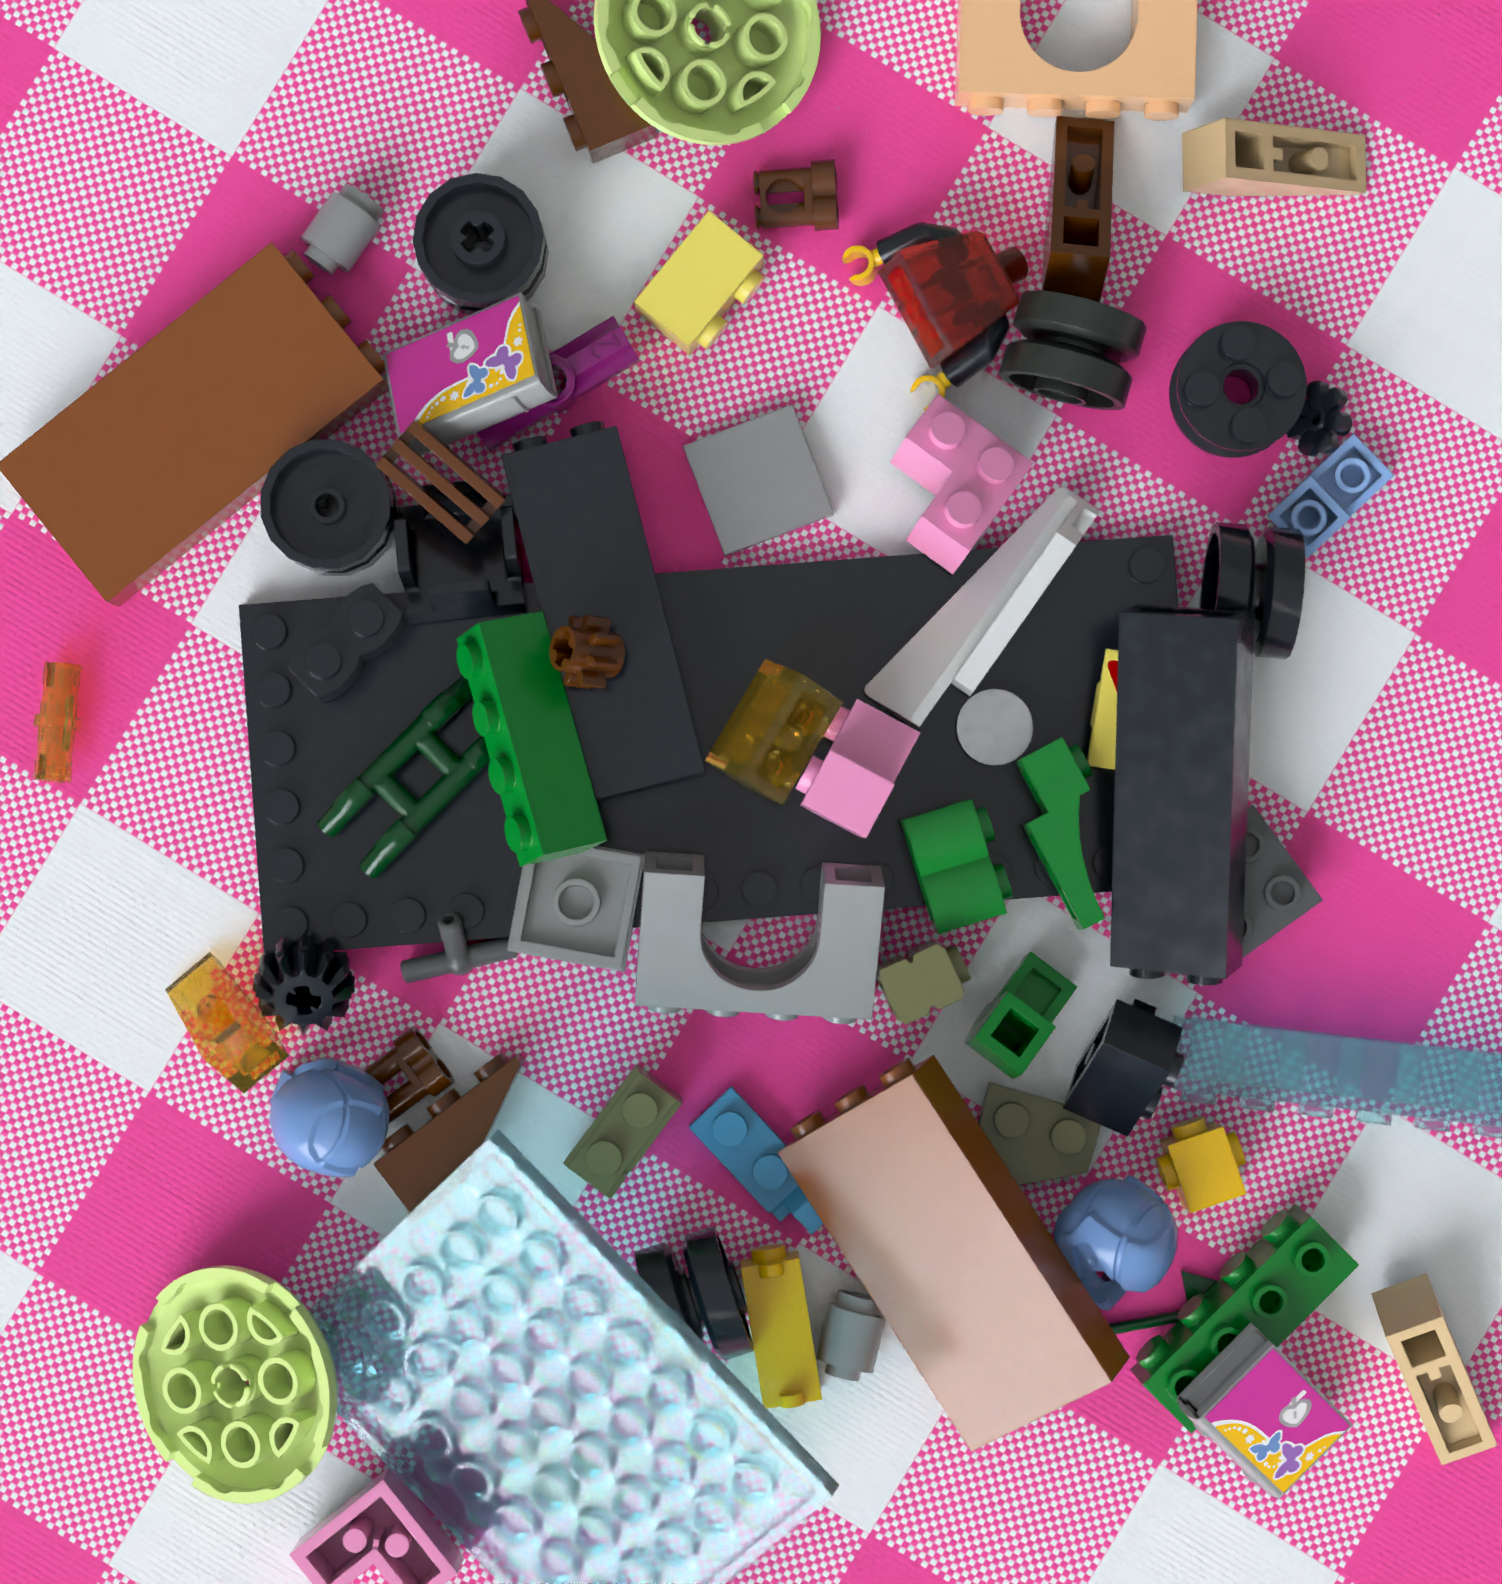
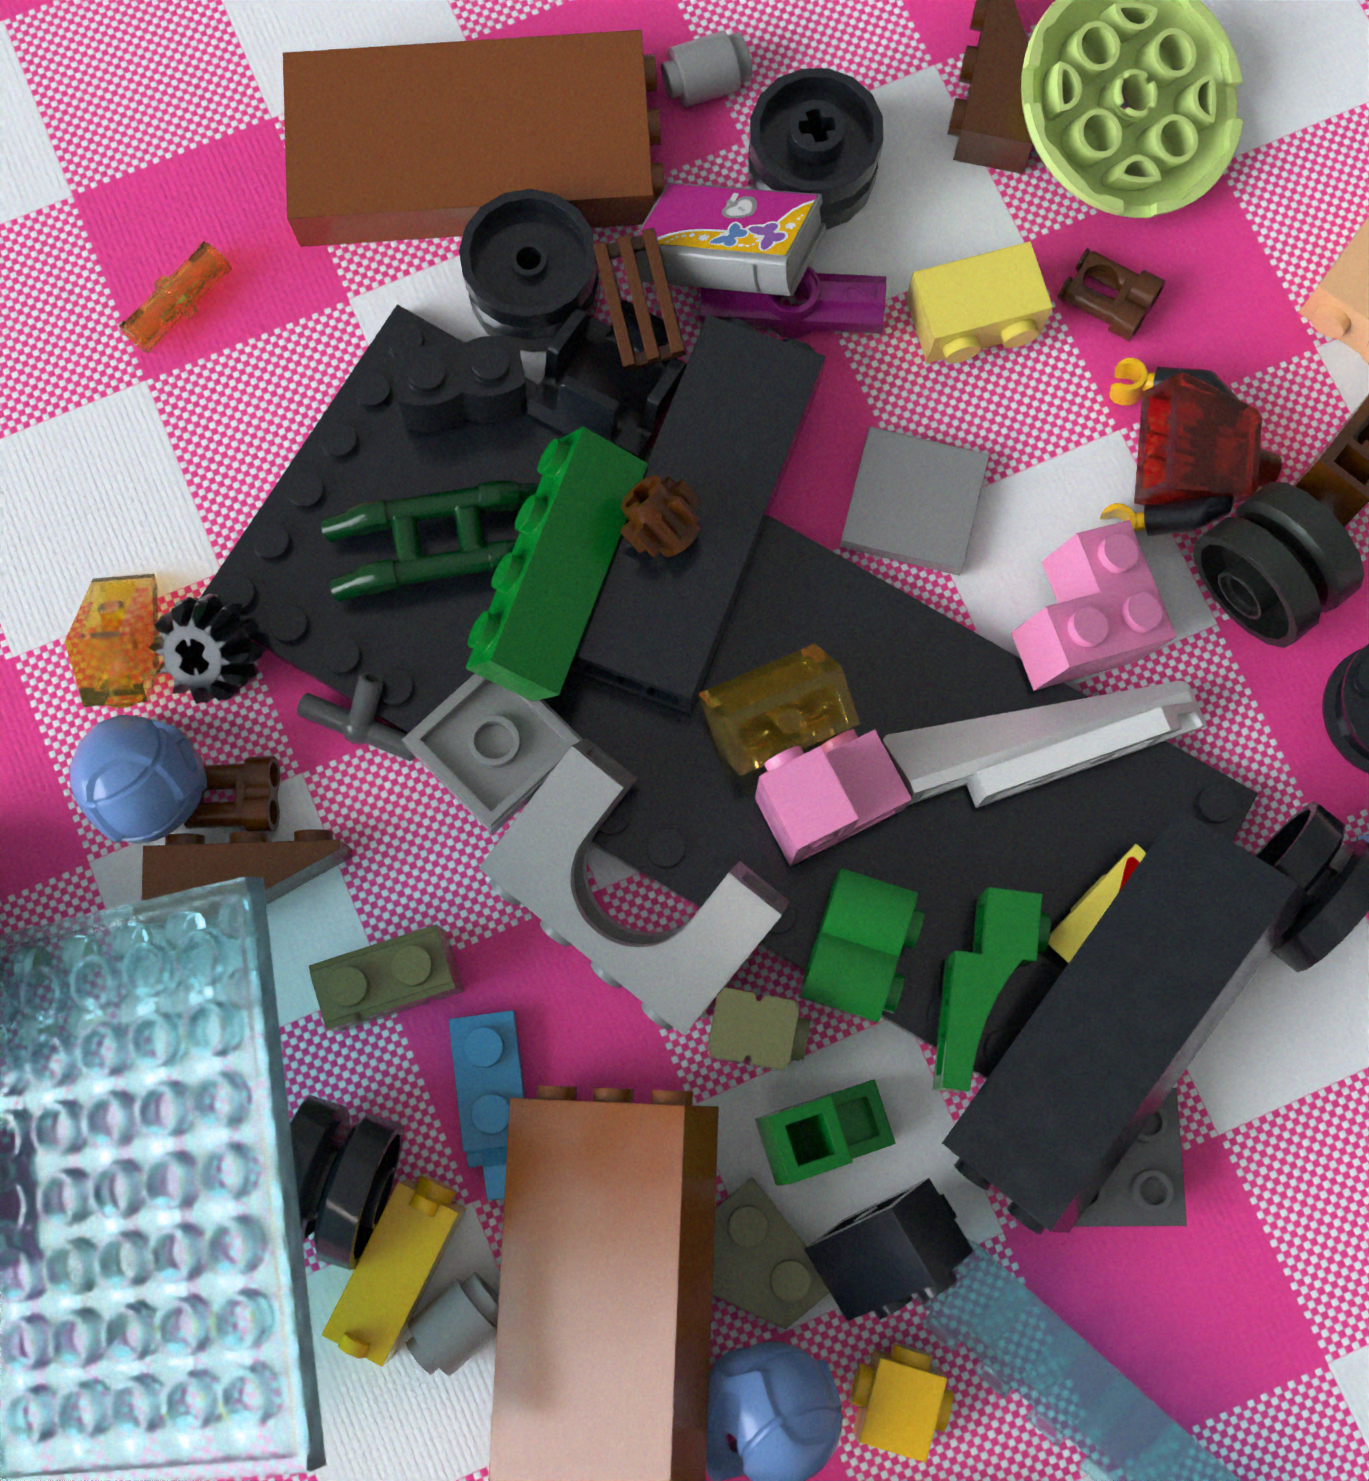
camera: 40 degrees right, 10 degrees down
(994, 727) = (980, 850): flat silver sticker -> none

